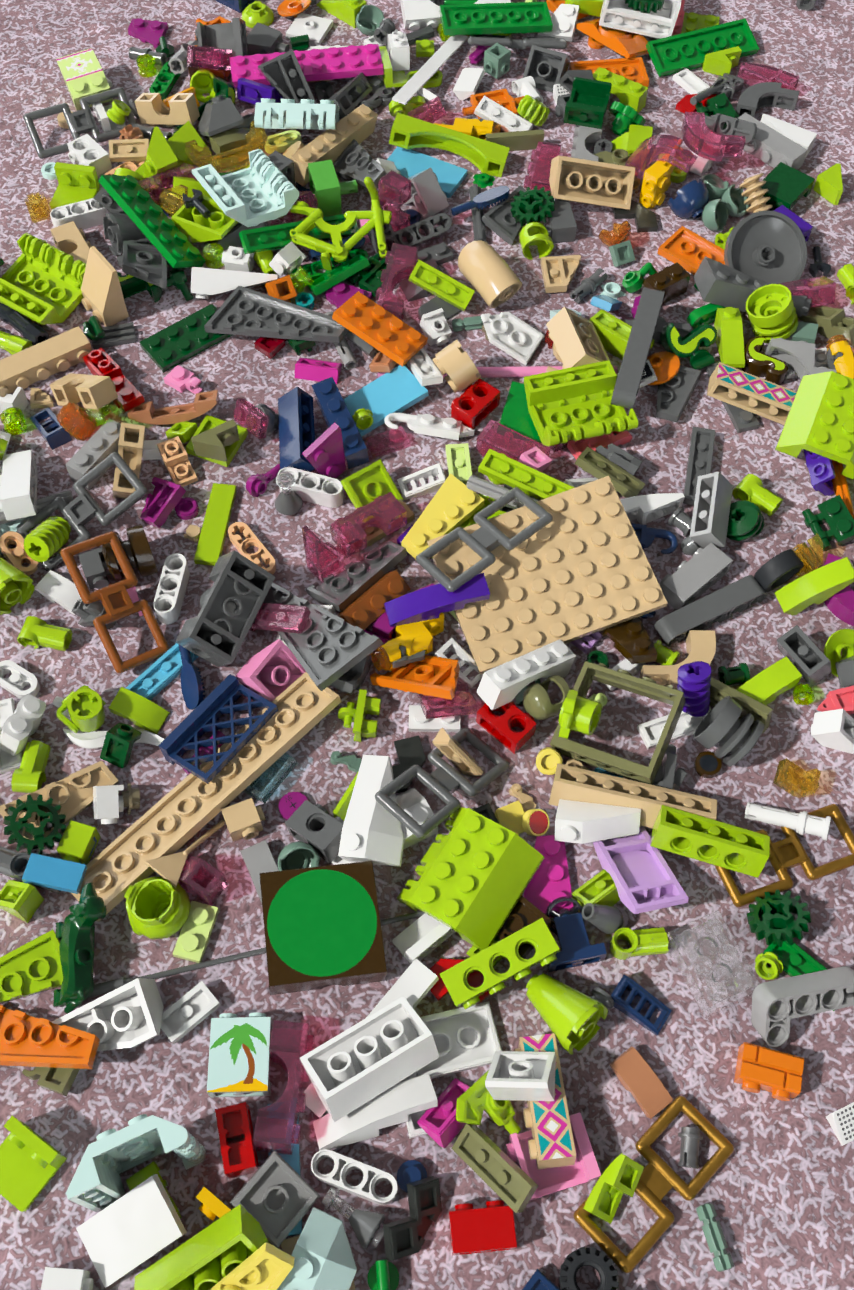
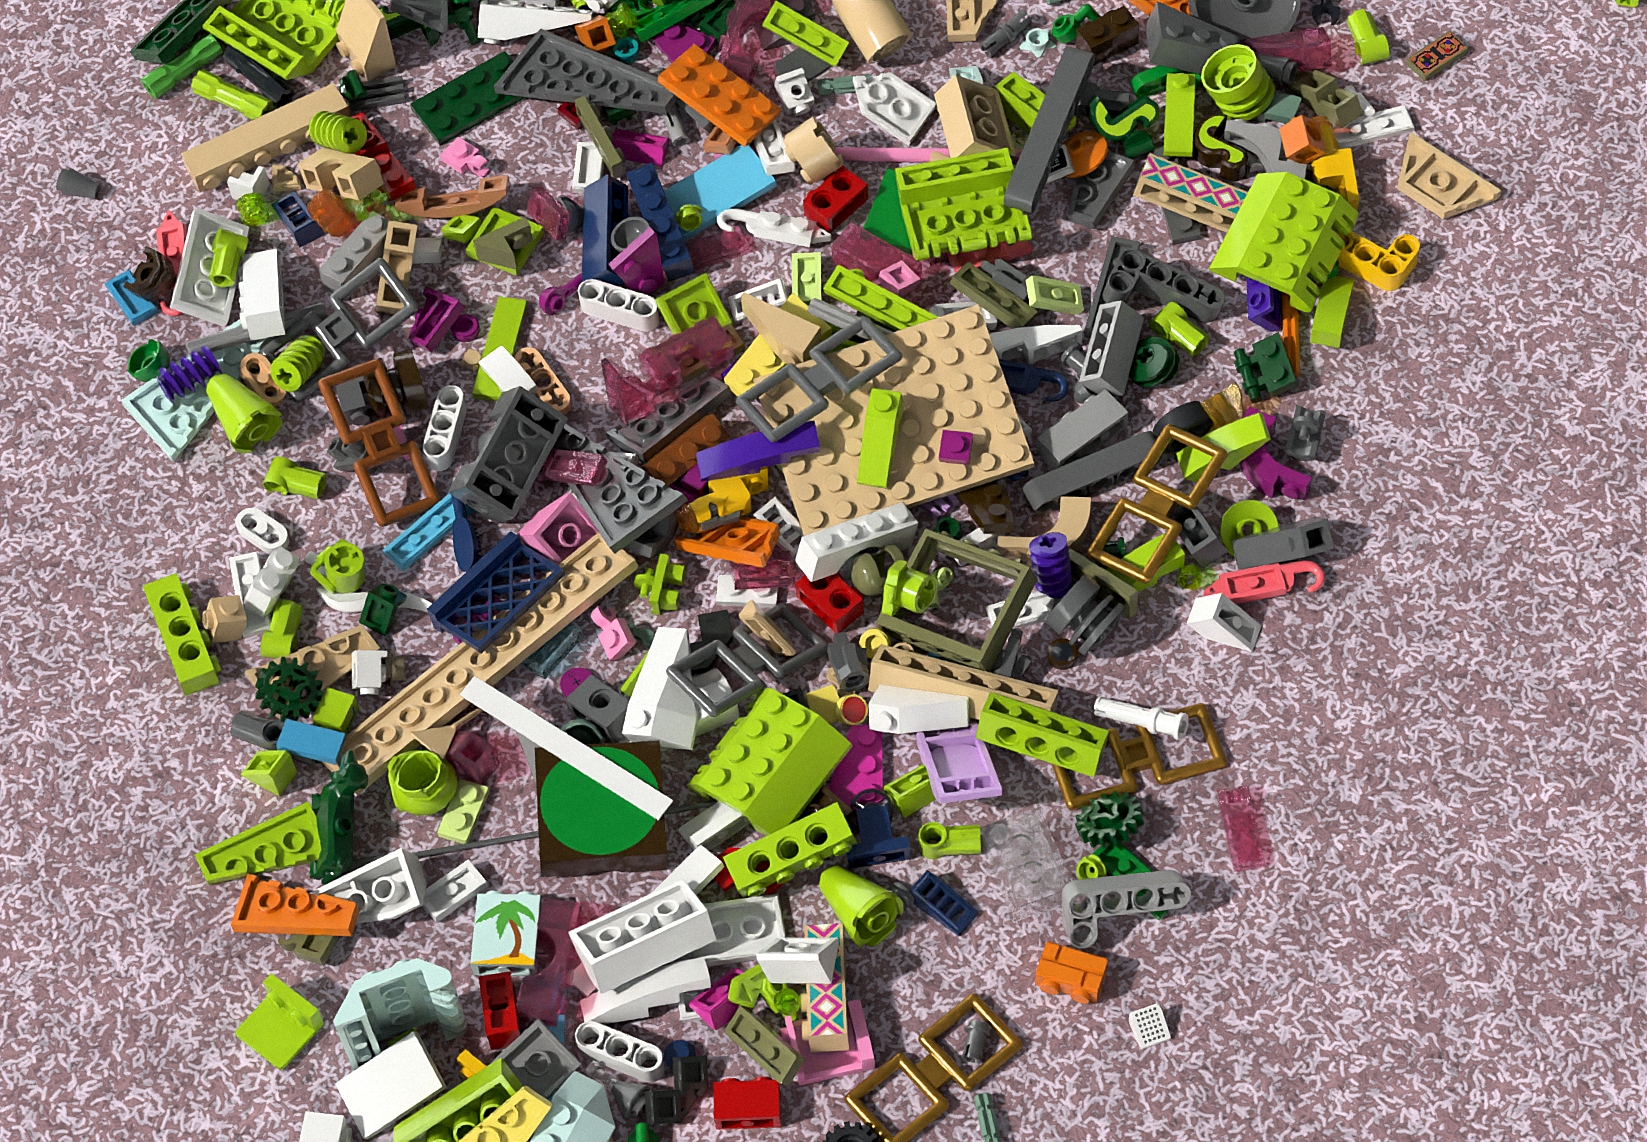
camera: 10 degrees right, 0 degrees up
(59, 590) = (311, 426): white slope -> none
(81, 359) = (337, 132): none -> lime piece
(138, 710) = (404, 570): lime slope -> none
(177, 461) = (455, 268): light nougat slope -> none
(221, 540) = (506, 371): none -> white slope
(243, 820) = (522, 690): tan brick -> none
(280, 383) = (588, 166): none -> white tile
(287, 501) = (589, 323): dark grey piece -> none
(288, 360) = (600, 136): none -> olive plate
(290, 873) = (566, 748): none -> white piece
(315, 429) = (627, 232): none -> dark grey piece
(325, 761) = (616, 635): none -> bright pink plate
(447, 502) = (785, 333): none -> tan slope
(509, 1112) = (787, 996): none -> clear neon green hinge
(529, 780) = (848, 663): none -> dark grey rock
(539, 586) = (880, 437): none -> lime slope
(603, 592) = (956, 447): none -> magenta plate
(604, 917) = (912, 811): dark grey cone -> none
(606, 302) = (1023, 60): dark azure tile -> none
(617, 1179) = (888, 1065): lime slope -> none
(641, 1082) = (933, 978): nougat slope -> none
(657, 471) = (1054, 295): none -> yellowish green plate
(665, 656) = (1028, 525): lime bush -> none
(741, 460) = (1201, 299): none -> dark grey beam
(774, 635) = (1157, 503): none -> pearl gold bar
(795, 779) = (1160, 673): clear yellow bracket -> none
(832, 350) = (1302, 139): none -> orange brick

